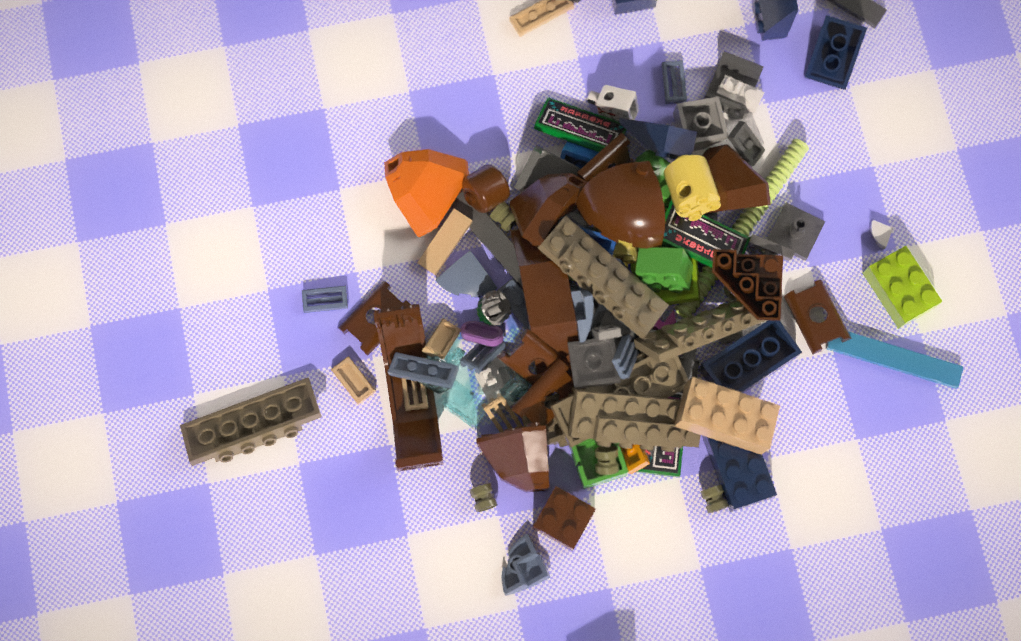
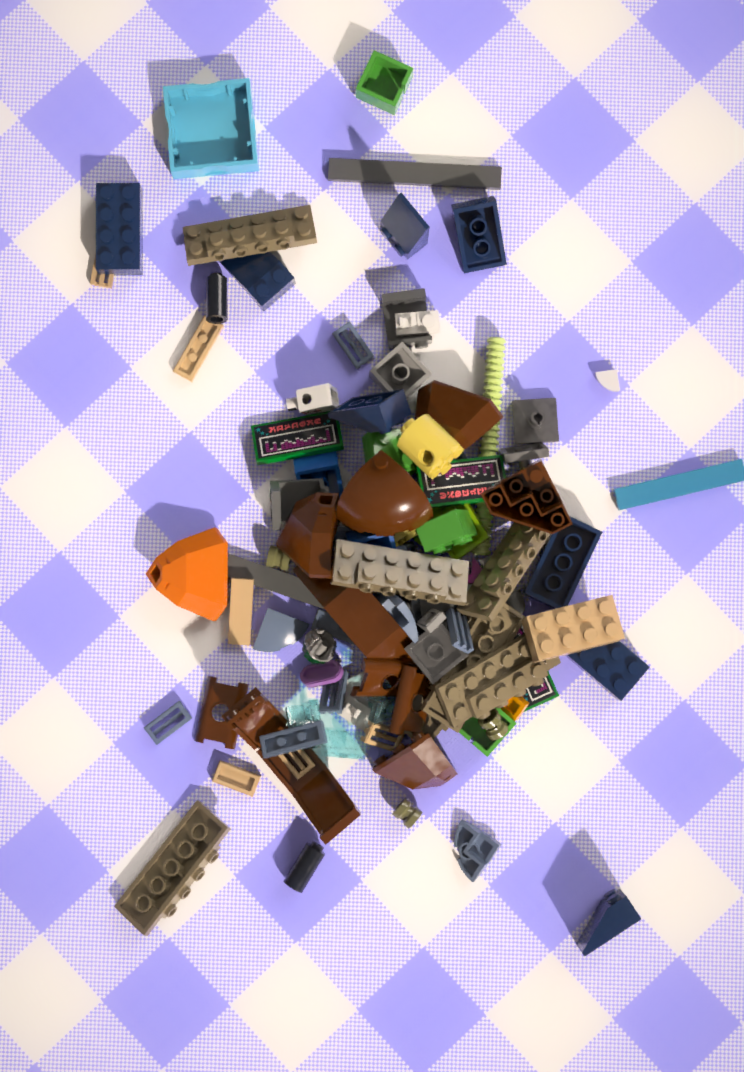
camera: 30 degrees left, 10 degrees up
(365, 490) = (304, 866): none -> black brick
(441, 339) = (291, 701): tan tile -> none
(485, 188) = (248, 545): reddish brown head -> none
(564, 518) = (484, 790): reddish brown brick -> none
(614, 152) = (342, 448): reddish brown piece -> none
(714, 499) = (599, 698): olive wheel -> none
(746, 143) = (449, 368): dark grey plate -> none
(816, 333) = (603, 504): reddish brown piece -> none
(902, 287) = (653, 419): lime brick -> none

